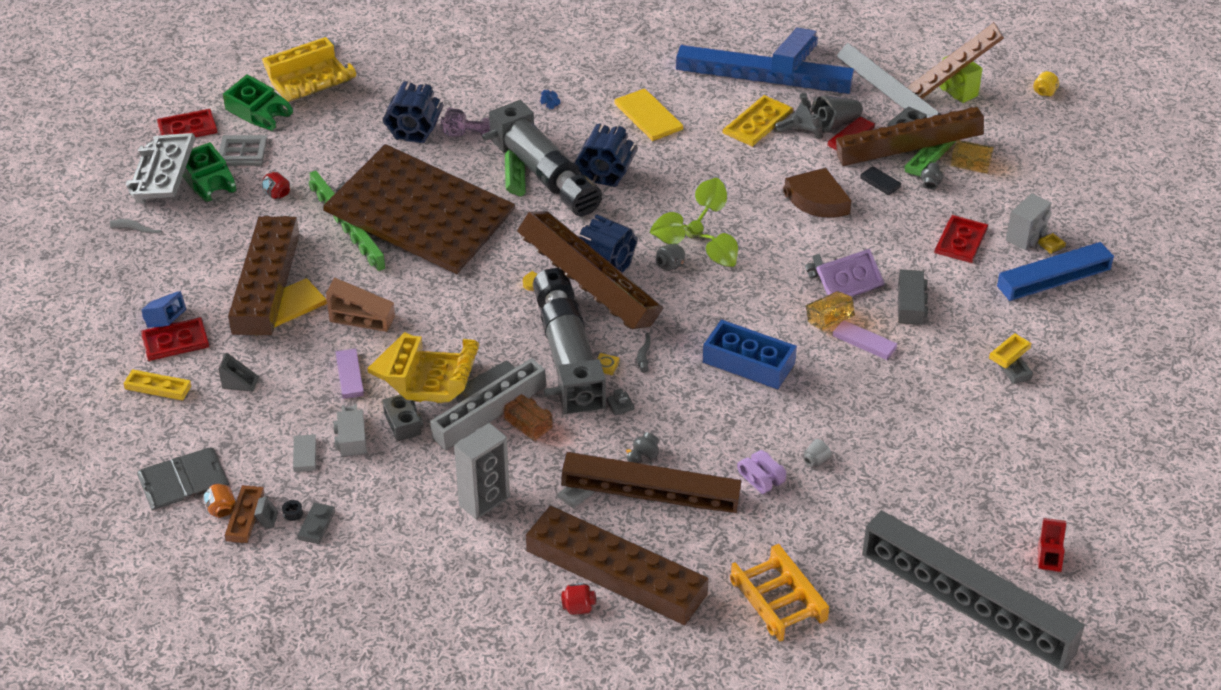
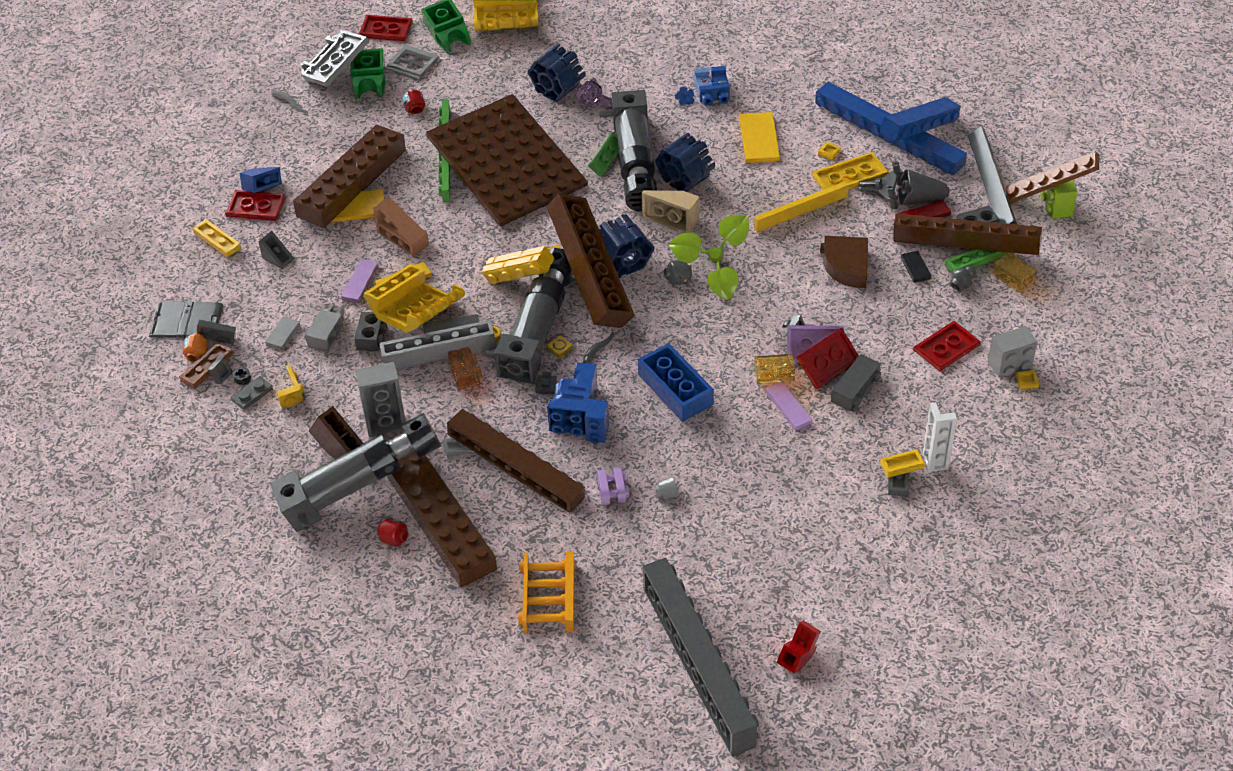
camera: 30 degrees right, 5 degrees up
(234, 475) = (216, 331): none -> dark grey plate
(366, 501) = (292, 395): none -> yellow bracket
(457, 529) = (334, 433): none -> reddish brown brick
(465, 599) = (305, 496): none -> dark grey piece
(516, 299) = (518, 265): none -> yellow brick
(569, 81) = (712, 89): none -> blue hips
(623, 200) = (671, 209): none -> tan slope
(645, 445) = (535, 427): dark grey animal -> none
(675, 411) = (575, 406): none -> blue brick
(723, 106) = (829, 151): none -> yellow tile
(744, 156) = (801, 206): none -> yellow tile
(873, 283) = (828, 358): none -> red tile
(1041, 315) = (939, 438): none -> white fence
(1046, 84) = (1143, 226): yellow head -> none
(1055, 271) = (1007, 406): blue brick -> none

